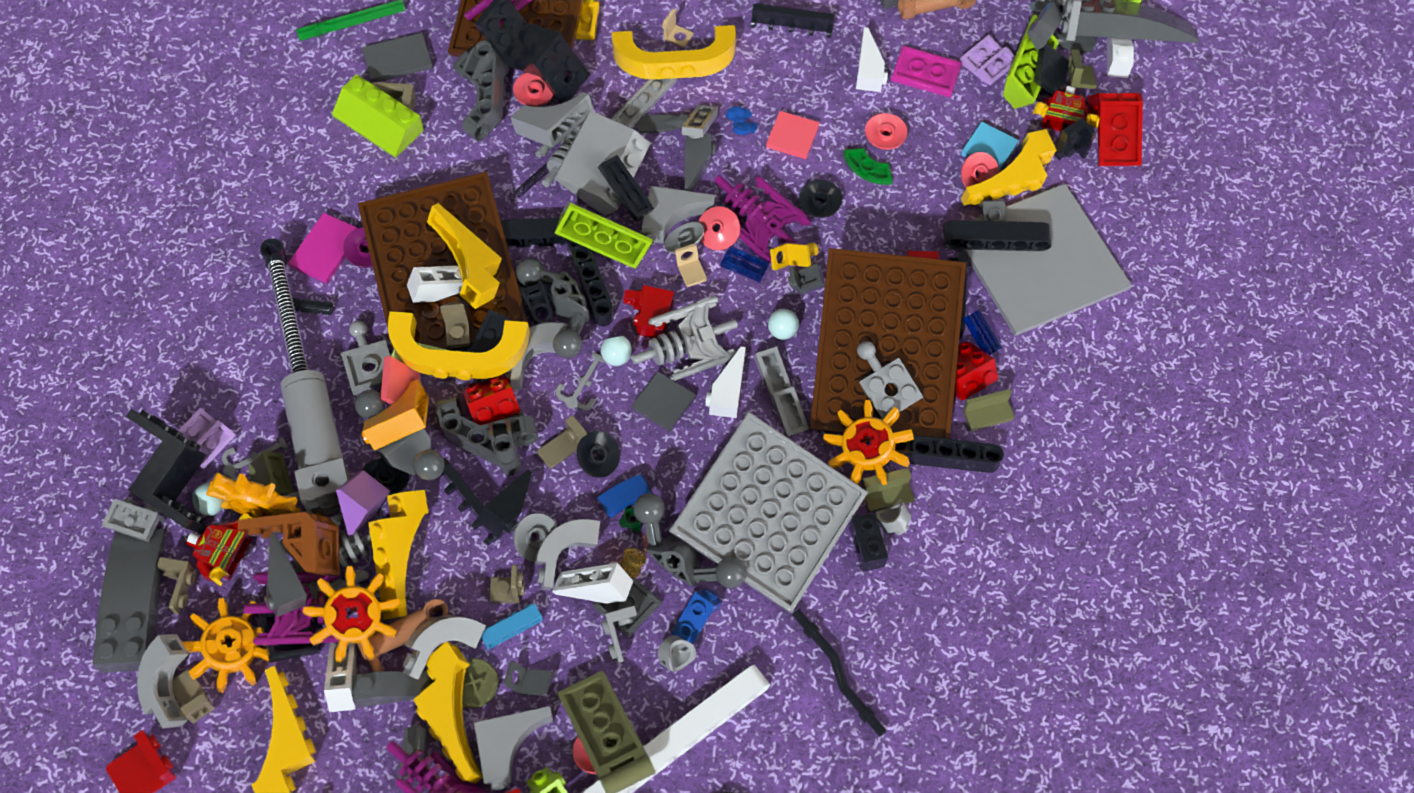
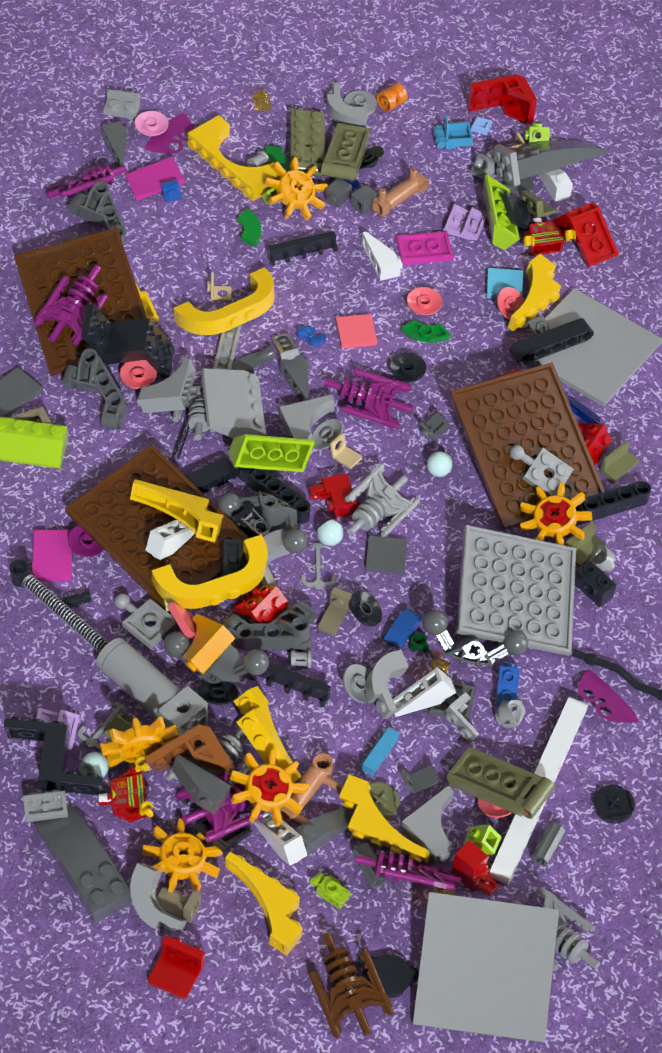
camera: 30 degrees left, 10 degrees down
(186, 576) = (106, 823): dark tan bracket -> none
(355, 760) = (330, 890): none -> lime piece
(360, 500) = (223, 709): medium lavender slope -> none
(434, 633) = (334, 777): arch -> none
(456, 325) = (201, 562): dark tan bracket -> none
(495, 479) = (300, 659): none -> light grey bush
(503, 511) = (329, 669): black slope -> none
(507, 588) = (363, 727): dark tan bracket -> none
(626, 188) = (267, 413): black plate -> none
(726, 389) = (430, 529): white slope -> none
(728, 231) = (358, 420): coral dish -> none
(743, 267) = (381, 438): clear blue tile -> none
(781, 392) = (458, 506): light grey slope -> none
(793, 255) = (415, 413): yellow bracket -> none
(805, 696) = (619, 709): none -> magenta piece
(1045, 25) = (498, 179): dark grey tile -> none
(1075, 138) = (566, 253): black bracket -> none

